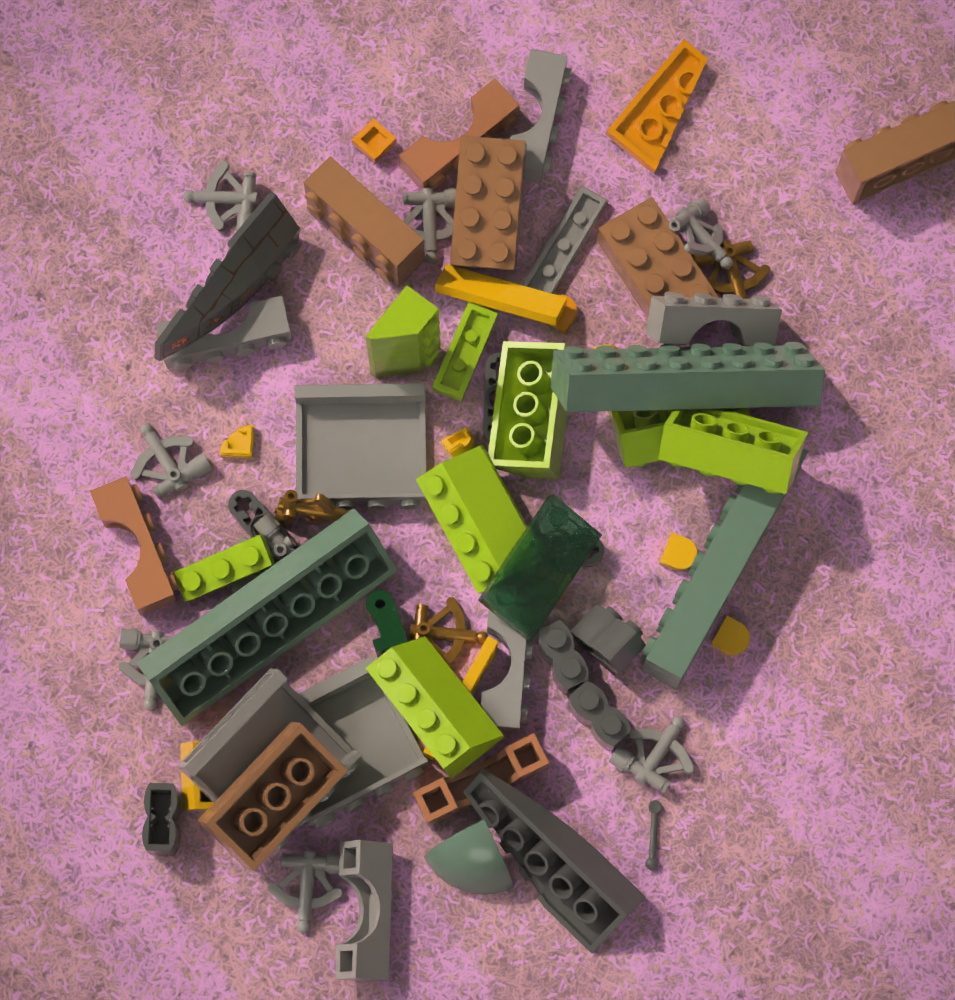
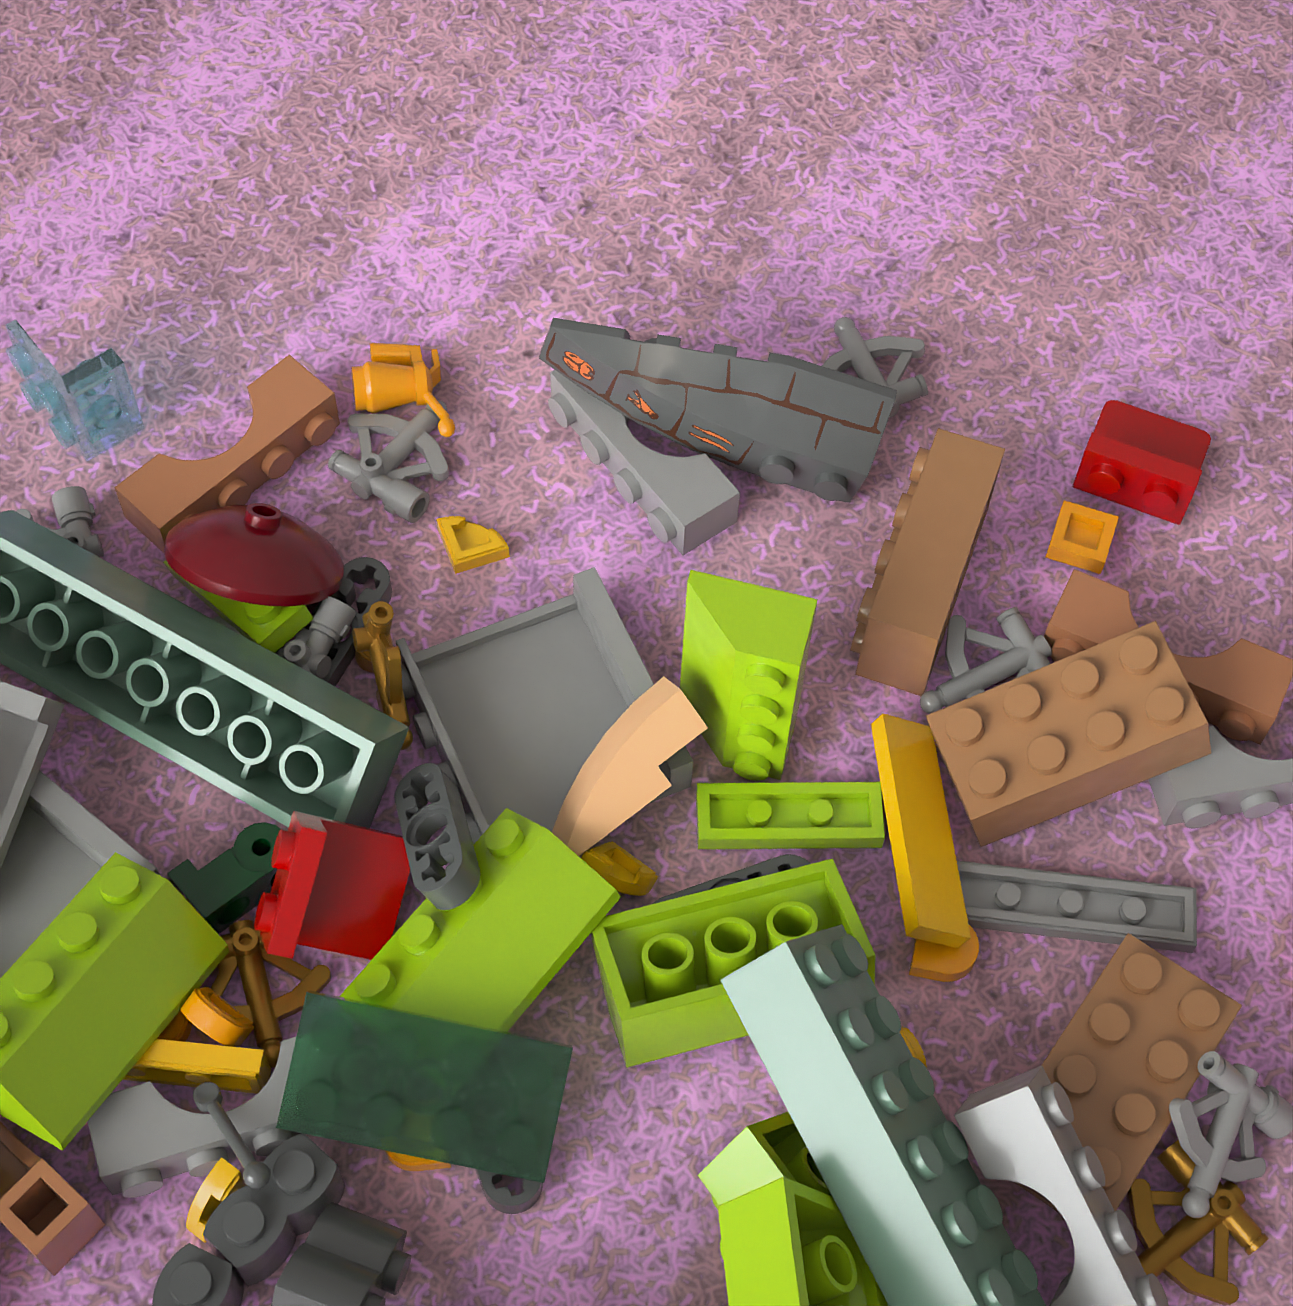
camera: 65 degrees right, 15 degrees down
(72, 621) = (87, 405): none -> clear light blue bracket
(123, 450) = (399, 378): none -> light orange piece
(216, 551) = (254, 556): none -> dark red dish
(343, 87) = (1143, 461): none -> red bracket
(418, 415) = (624, 765): none -> light nougat slope
(420, 577) = (332, 888): none -> red bracket
(430, 509) = (419, 821): none -> dark grey beam
(460, 653) = (216, 1017): none -> light orange tile
(502, 668) = (209, 1099): none -> dark grey hinge
(542, 680) = (217, 1186): none -> yellow tile

